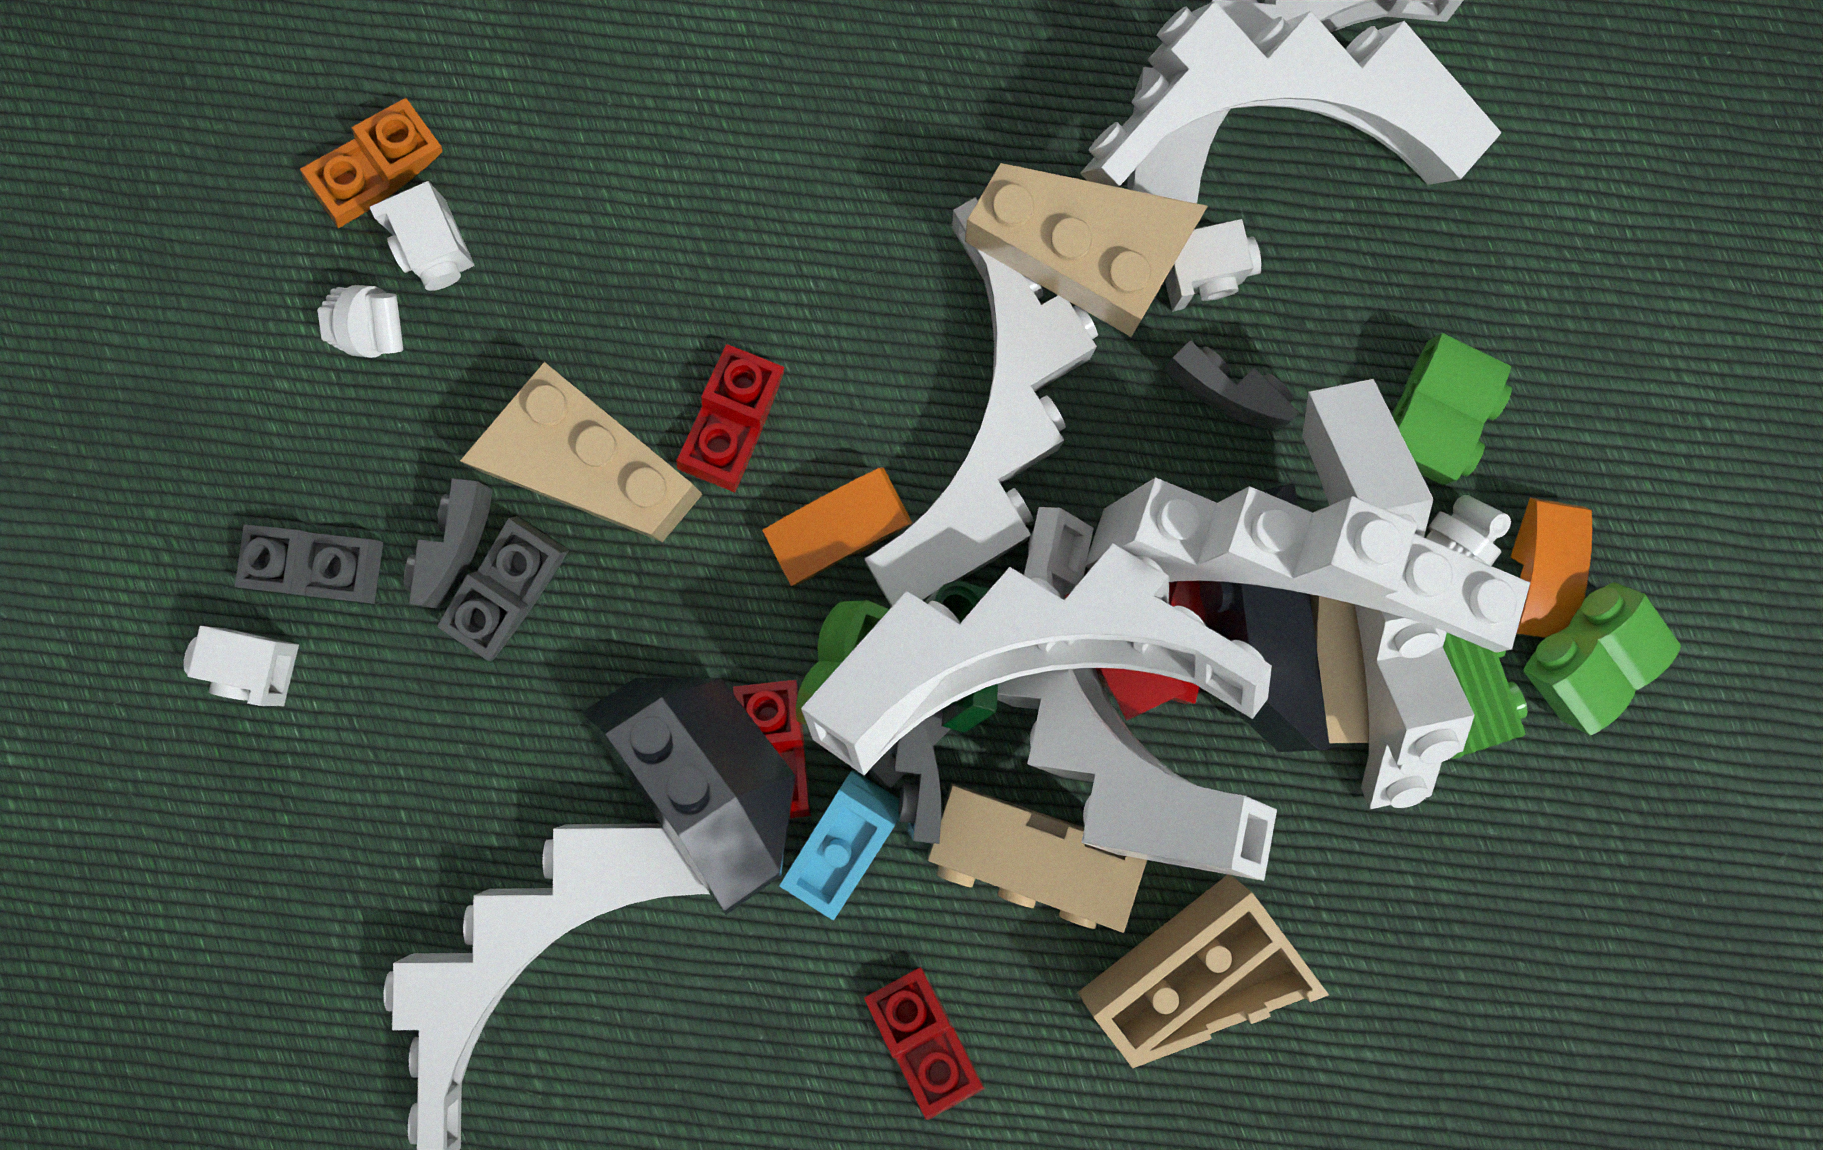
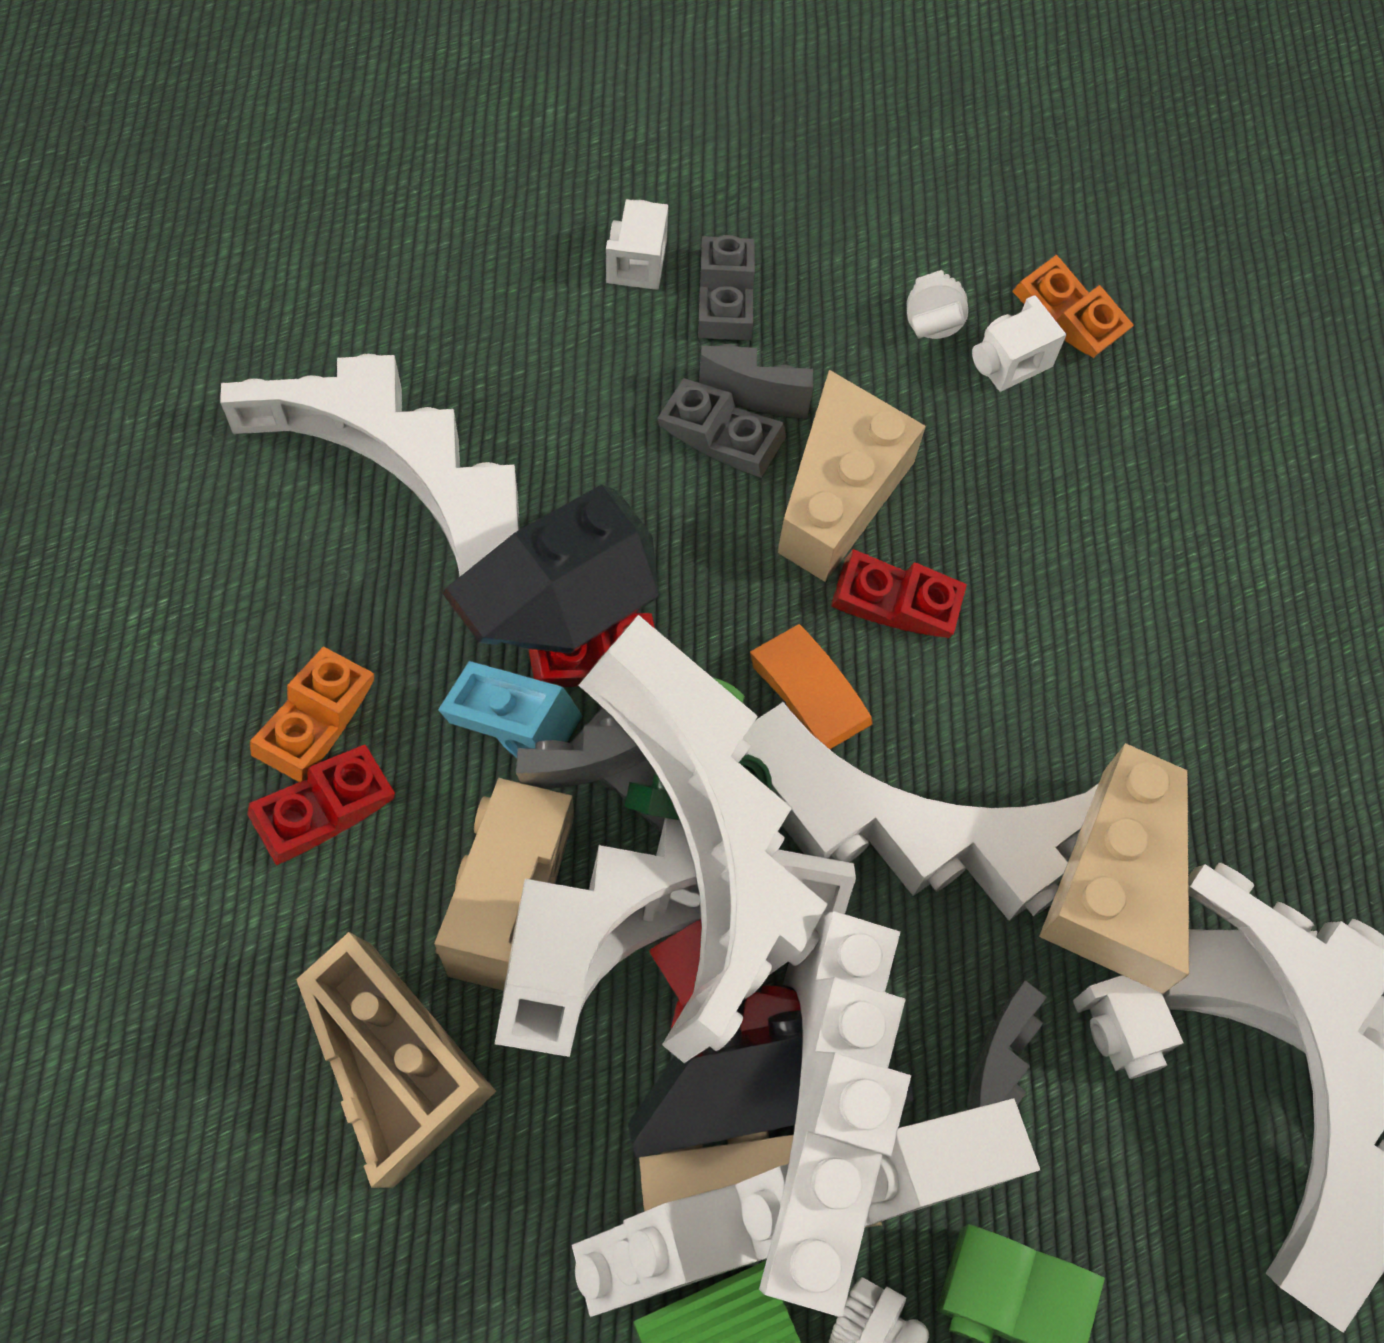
camera: 80 degrees right, 20 degrees down
(823, 1052) = (314, 716): none -> orange slope

